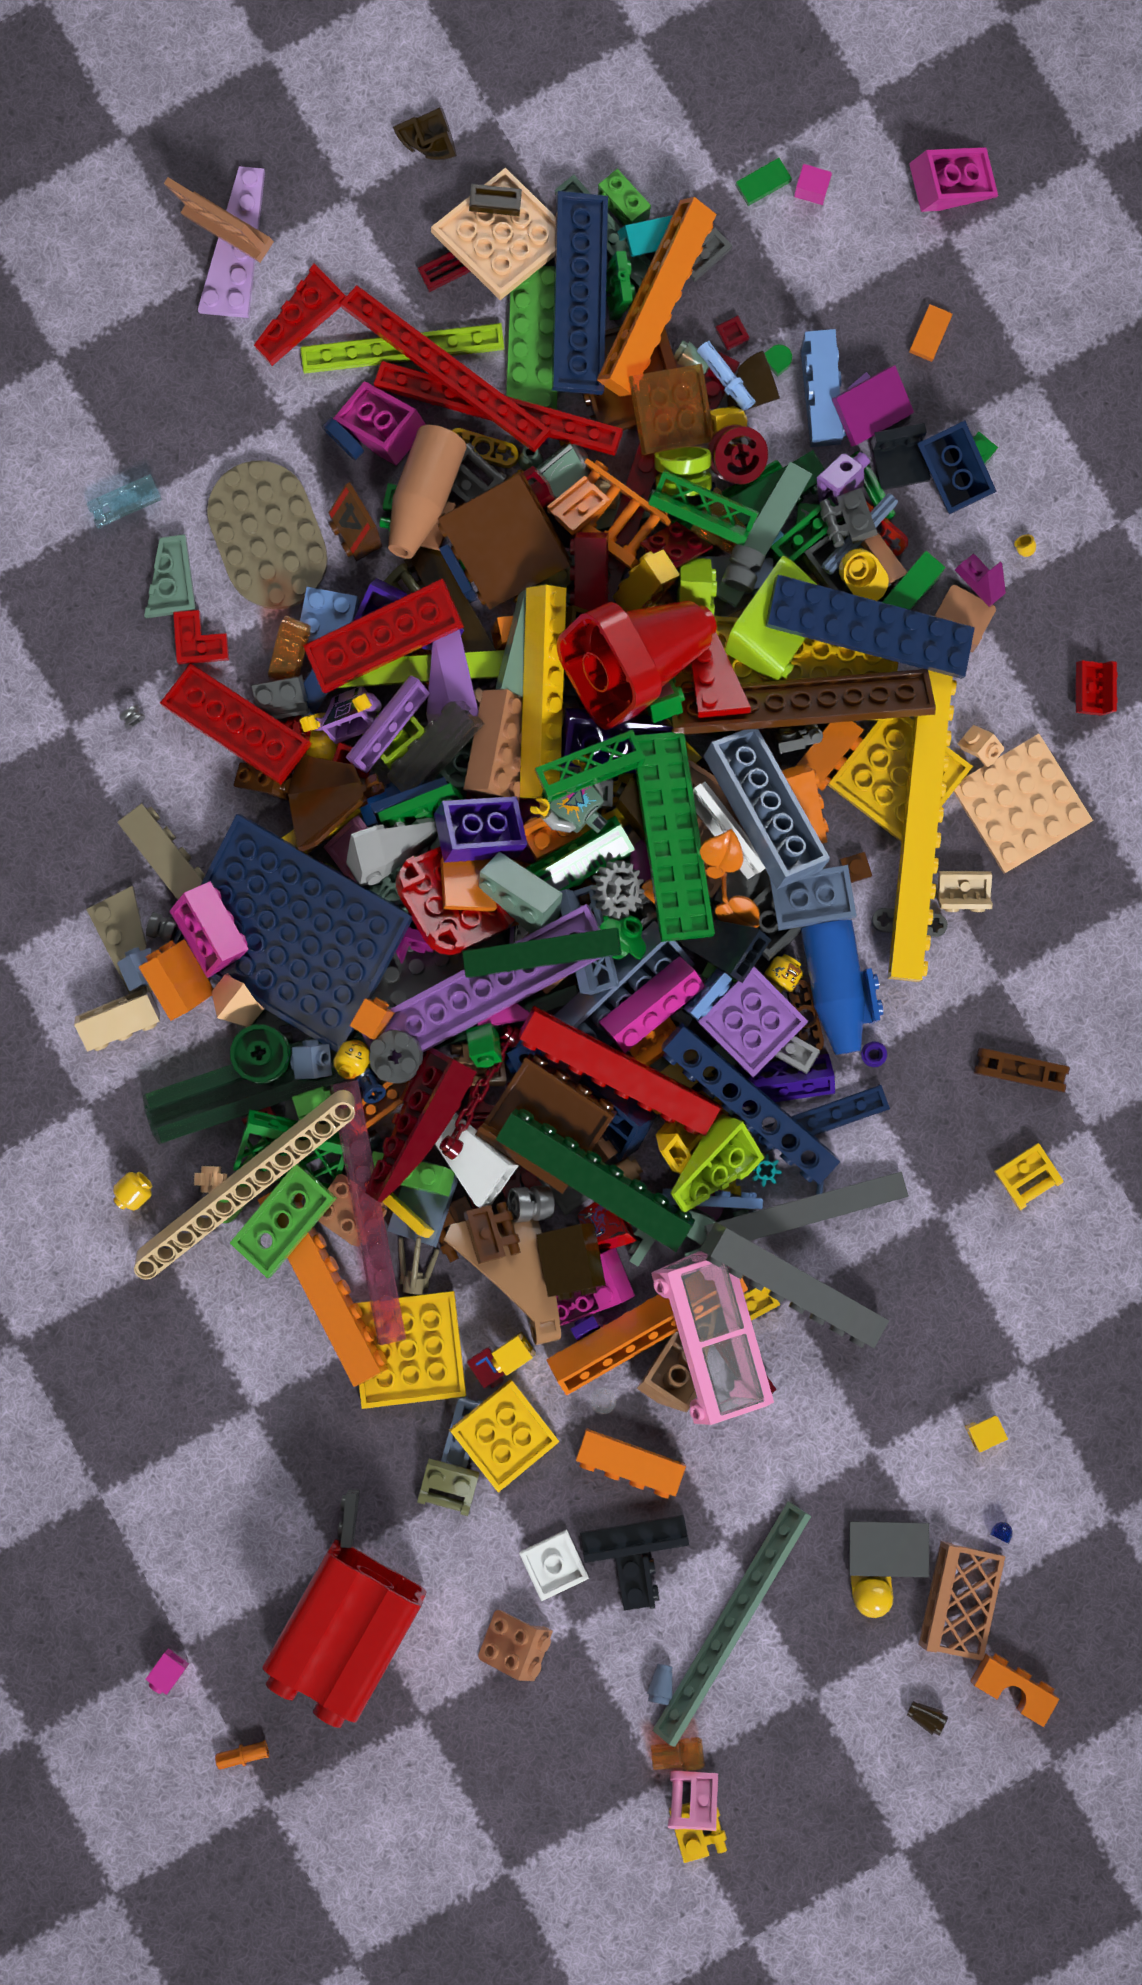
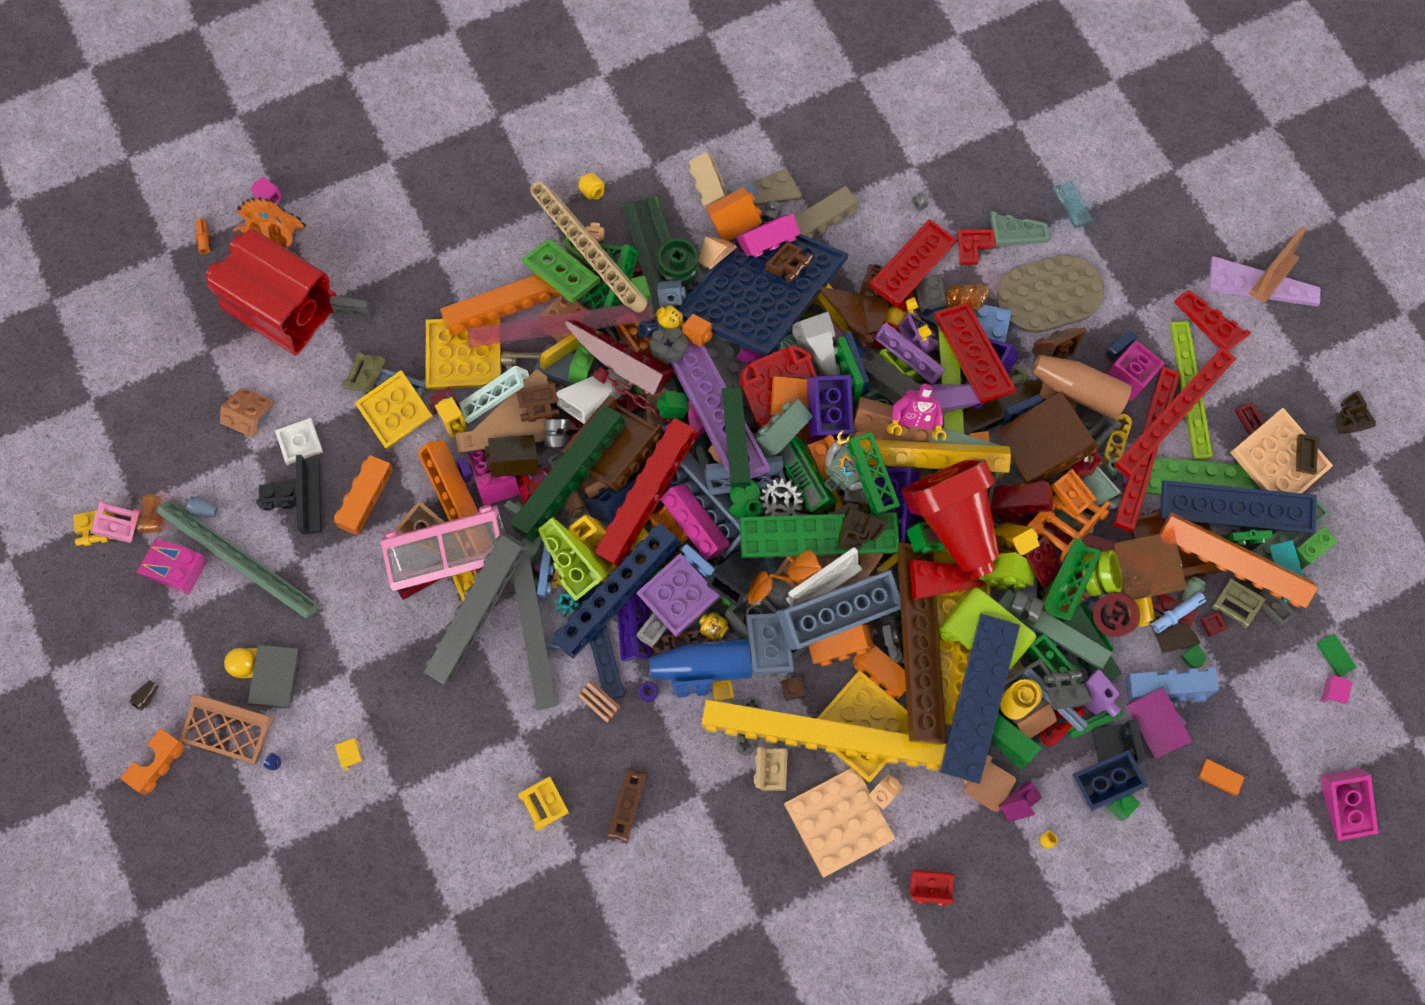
camera: 90 degrees right, 15 degrees down
(226, 1658) = (269, 220): none -> orange piece
(250, 901) = (783, 261): none -> reddish brown plate
(478, 1300) = (493, 393): none -> light aqua fence
(489, 709) = (918, 410): none -> dark pink torso
(661, 784) = (859, 528): none -> dark brown brick
(697, 296) = (1241, 597): none -> olive plate
(747, 1713) = (172, 565): none -> dark pink slope
(868, 957) = (722, 690): none -> yellow tile
(895, 1119) = (597, 703): none -> nougat tile

